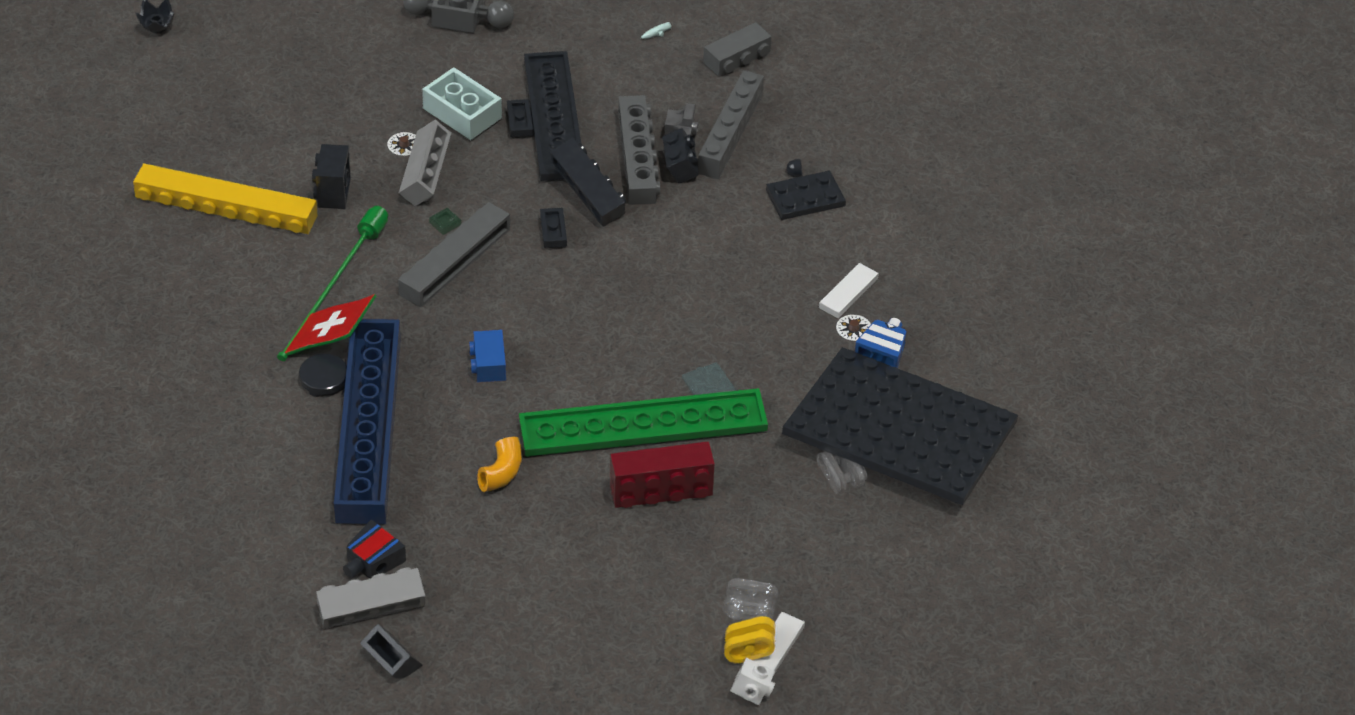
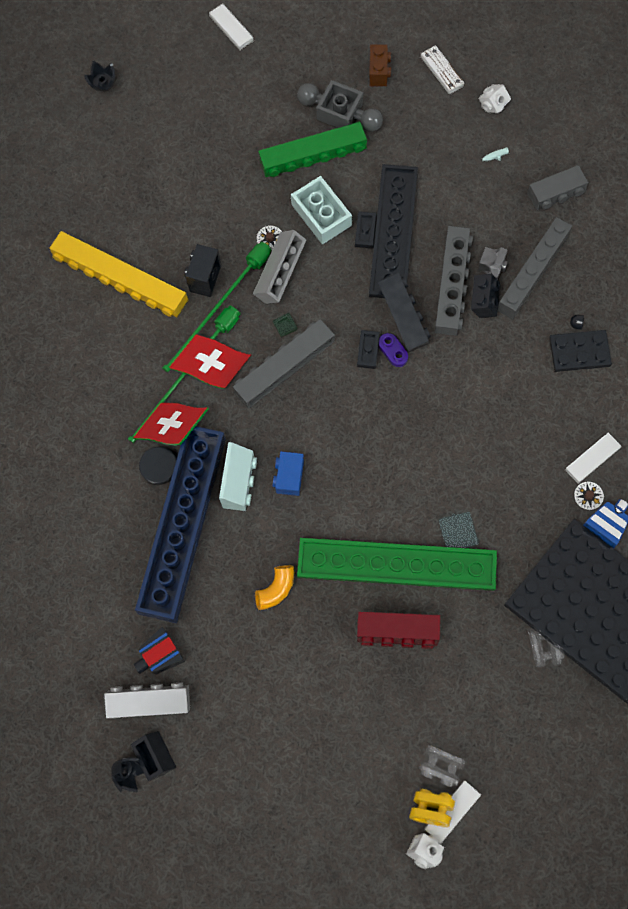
camera: 20 degrees right, 25 degrees up
(358, 261) = (208, 358): none -> red flag
(361, 672) = (124, 773): none -> black piece
(427, 366) = (237, 477): none -> light aqua slope
(435, 51) = (313, 149): none -> green brick
(583, 225) = (393, 349): none -> dark purple plate

